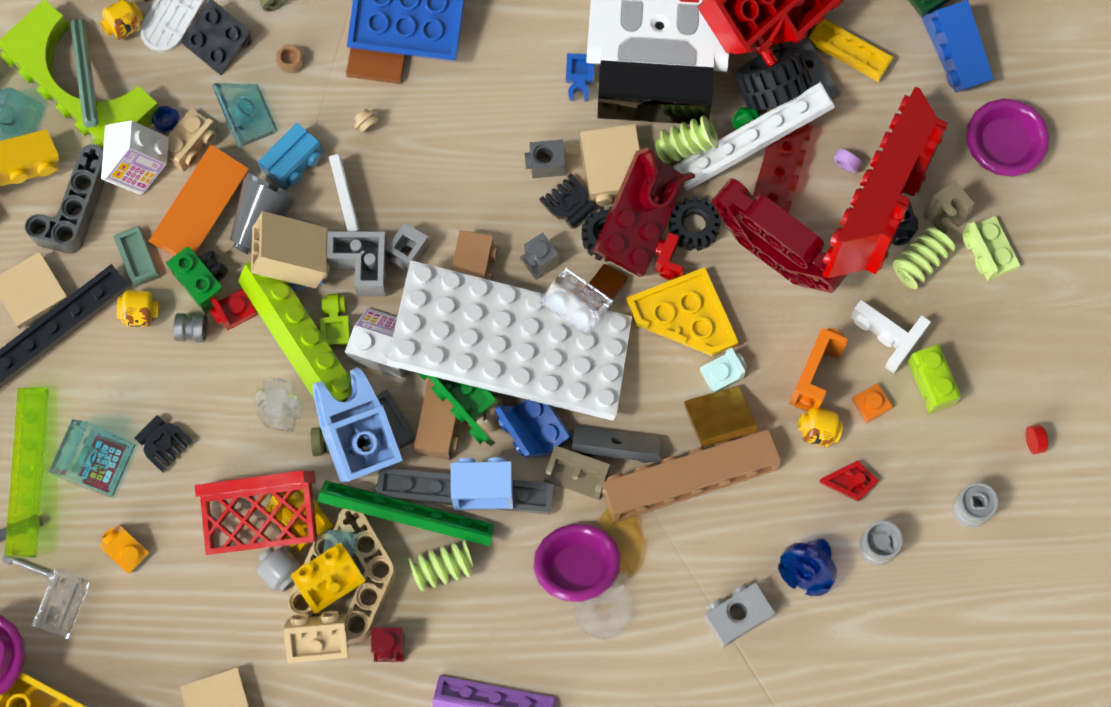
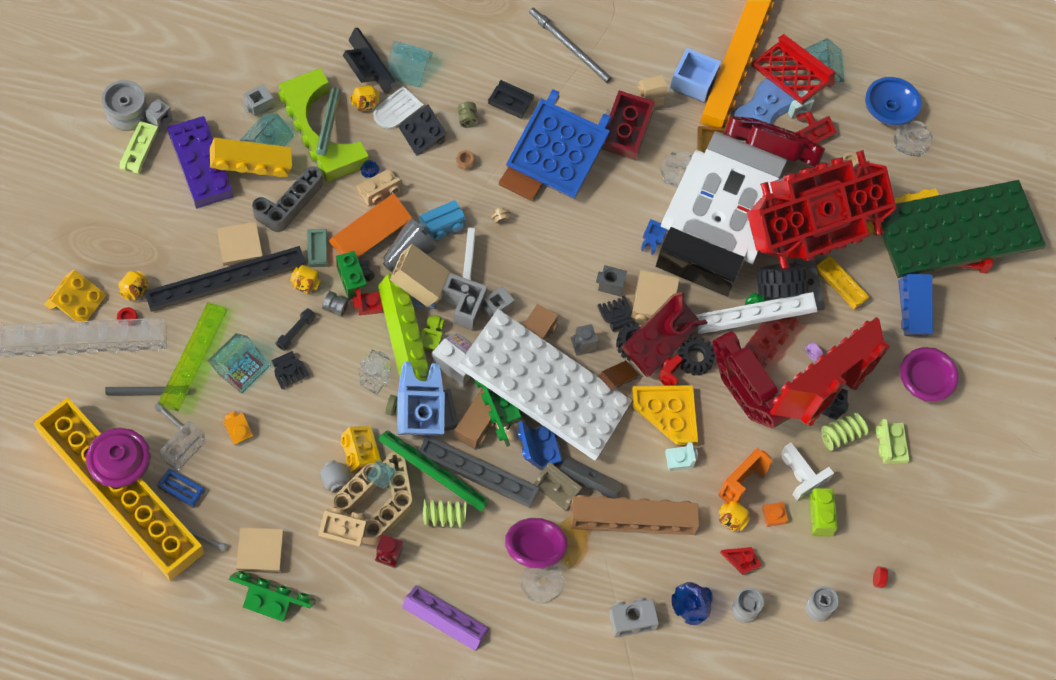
camera: 10 degrees right, 10 degrees down
(105, 663) = (195, 496): none -> blue tile
(133, 155) = (340, 182): white slope -> none
(142, 405) = (306, 317): none -> black bar
(245, 112) = (423, 182): clear light blue slope -> none
(255, 486) = (342, 417): fence -> none
(327, 578) = (366, 490): yellow bracket -> none
(481, 484) = (491, 467): light blue piece -> none
(576, 302) = (598, 374): clear brick -> none
(687, 142) = (710, 301): yellowish green piece -> none
(720, 416) = (668, 484): pearl gold tile -> none
(949, 203) = (874, 402): dark tan hinge -> none

